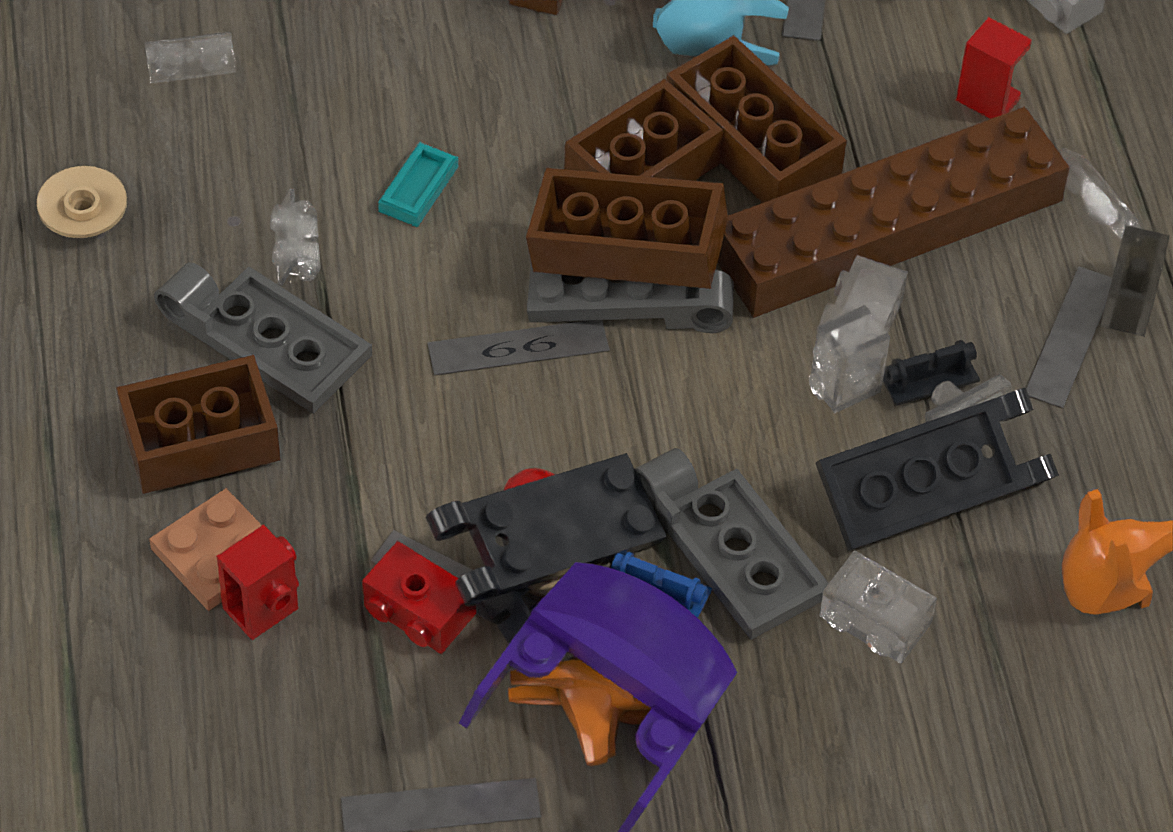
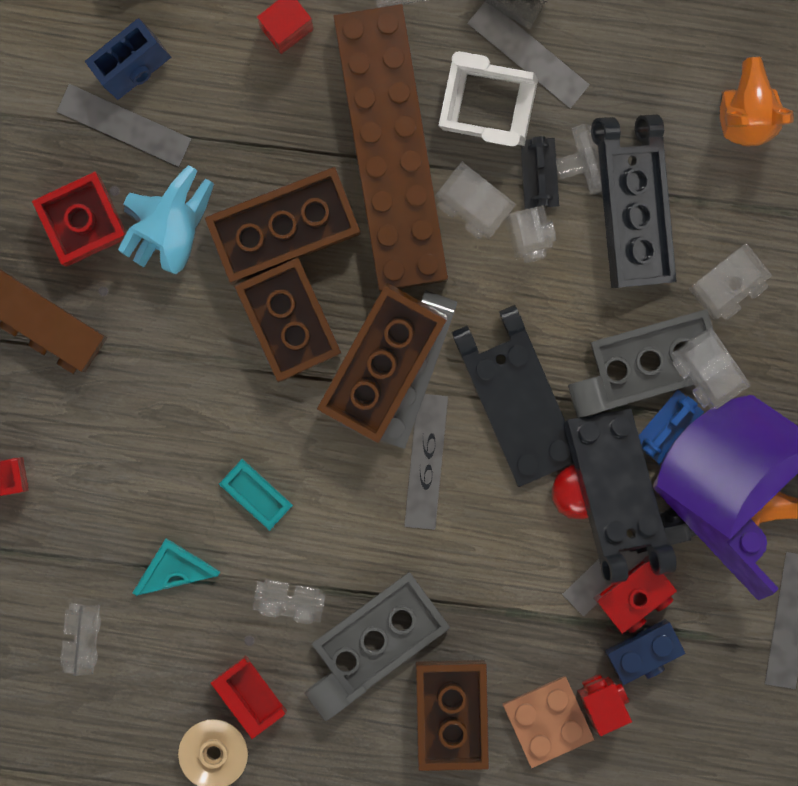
camera: 65 degrees left, 35 degrees up
(163, 222) = (248, 697): none -> red panel
(301, 125) = (173, 568): none -> teal tile
(344, 624) = (645, 652): none -> dark blue brick
(637, 408) = (518, 401): none -> black hinge
(752, 593) = (710, 369): none -> clear brick
(996, 260) = (479, 65): none -> white piece

